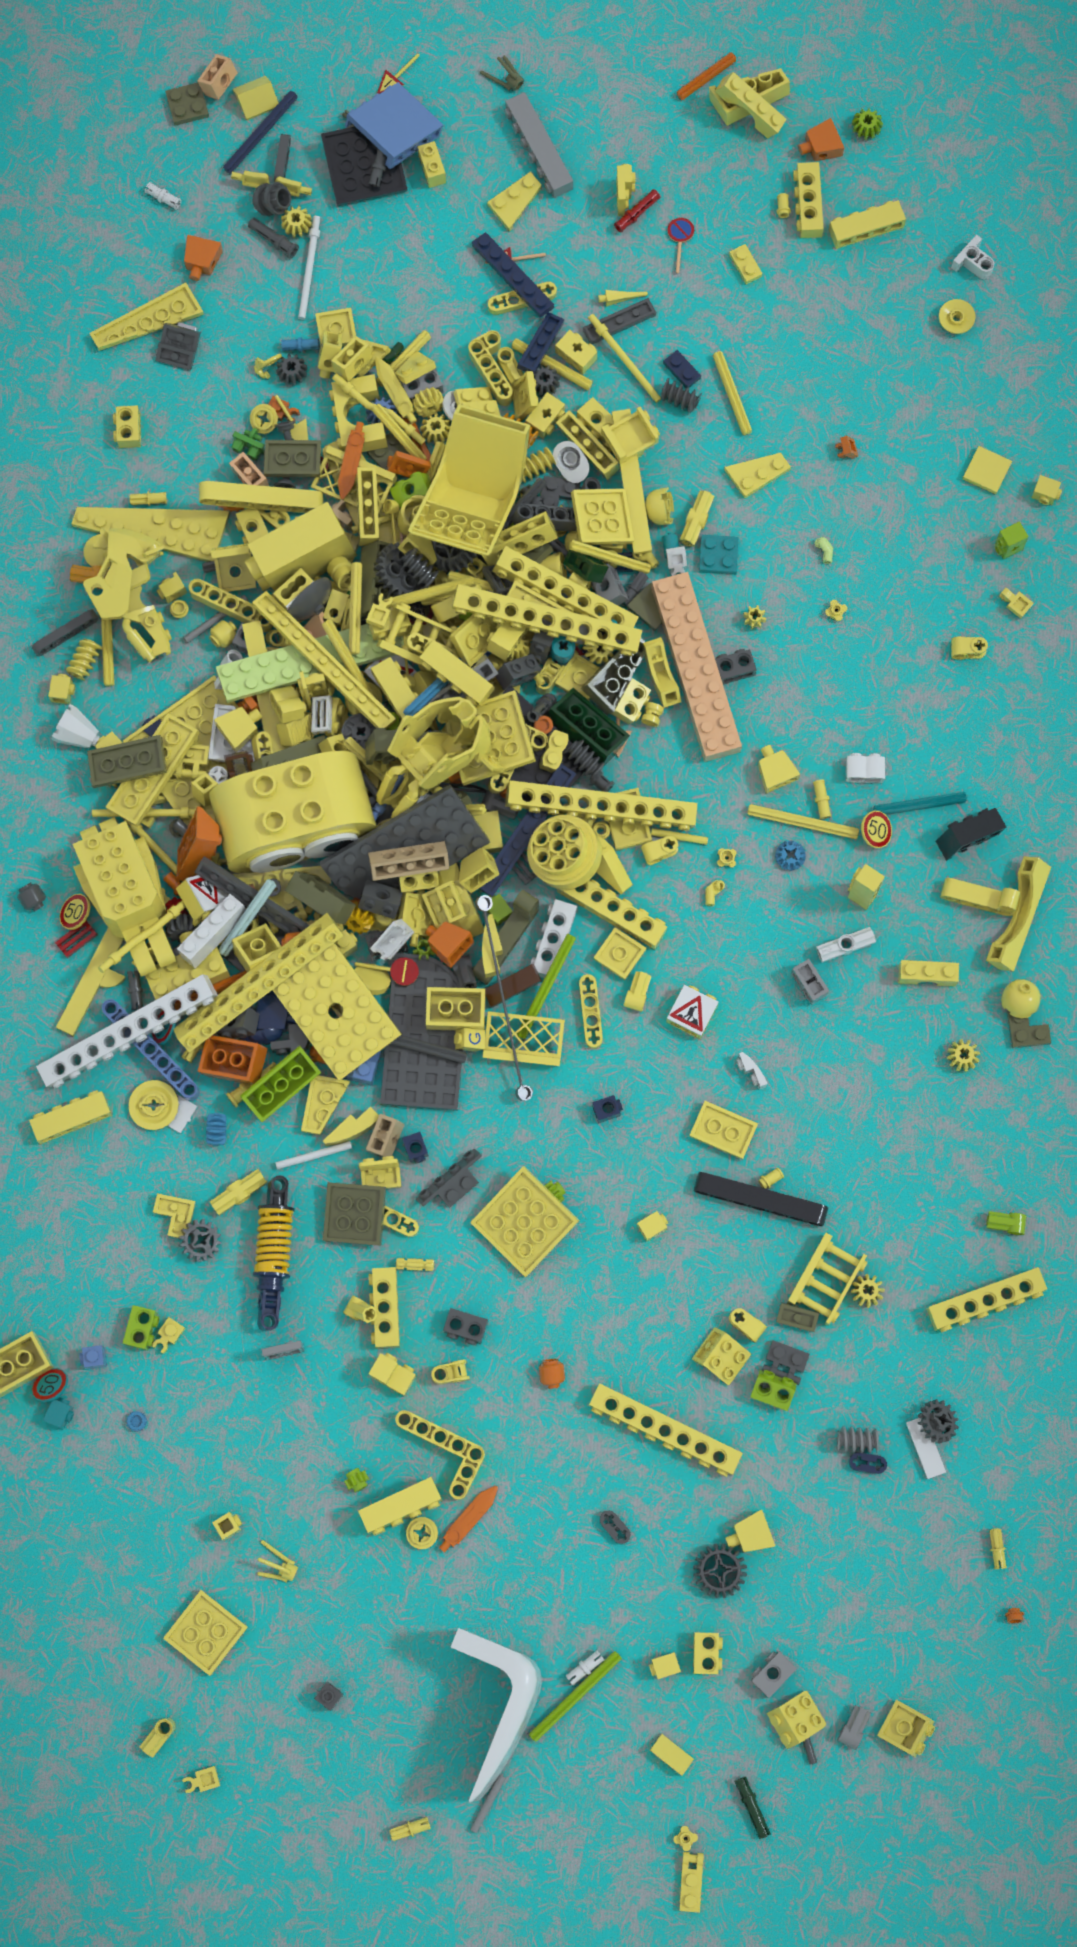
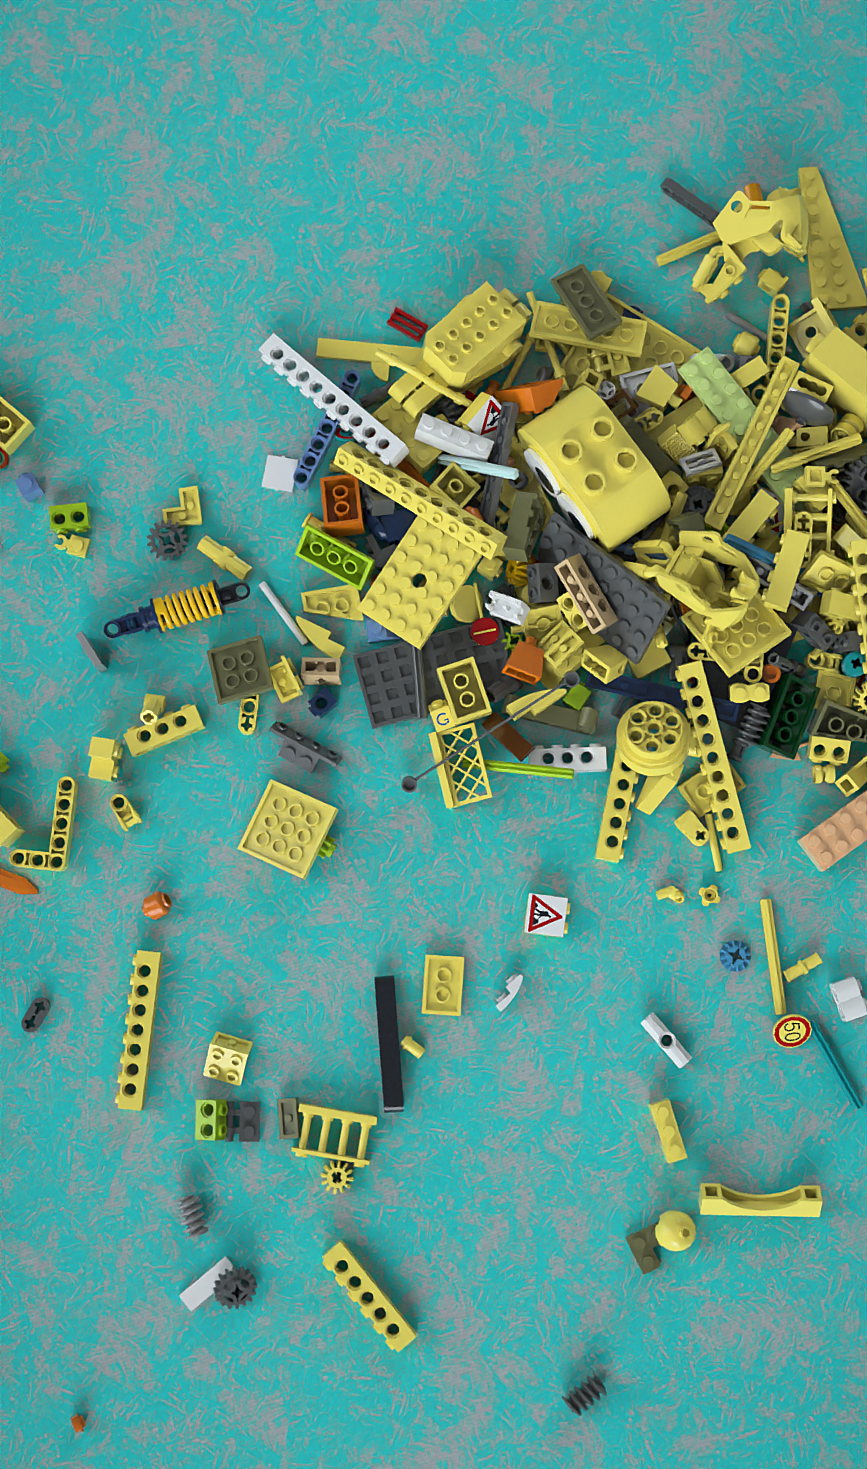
camera: 70 degrees right, 5 degrees up
(31, 897) = (430, 269): dark grey head -> none
(61, 689) = (636, 220): light yellow brick -> none
(70, 1117) = (239, 383): light yellow brick -> none
(74, 911) = (430, 312): piece -> none
(75, 729) = (601, 246): white cone -> none
(83, 658) = (672, 228): light yellow piece -> none
(145, 1095) = (286, 442): light yellow gear -> none
(148, 498) = (851, 227): light yellow axle -> none
(179, 609) = (755, 296): light yellow plate -> none
(216, 1129) = (274, 515): dark azure gear -> none
(415, 1264) = (214, 742): light yellow axle -> none
(467, 1321) = (177, 809): dark grey brick -> none
(590, 1011) = (510, 816): light yellow beam -> none
(602, 825) = (690, 759): light yellow plate -> none
(603, 1116) = (420, 859): dark blue brick -> none
(619, 953) = (577, 826): light yellow plate -> none
(636, 995) = (550, 856): light yellow piece -> none
(652, 1225) = (327, 950): light yellow brick -> none
(736, 1567) = (42, 1118): dark grey gear -> none
(750, 1327) = (265, 1075): light yellow piece -> none
(751, 1534) = (70, 1145): light yellow torso -> none
(776, 769) = (814, 912): light yellow torso -> none
(810, 981) = (615, 1018): light grey brick -> none
(865, 886) = (727, 1039): light yellow brick -> none
(868, 1468) = (170, 1233): dark blue beam -> none
(970, 832) = (824, 1125): black wedge -> none
(970, 1058) = (598, 1185): light yellow gear -> none
(981, 897) = (762, 1154): light yellow beam -> none
(997, 1548) = (135, 1385): light yellow axle -> none
(1012, 1223) = (451, 1294): lime piece -> none

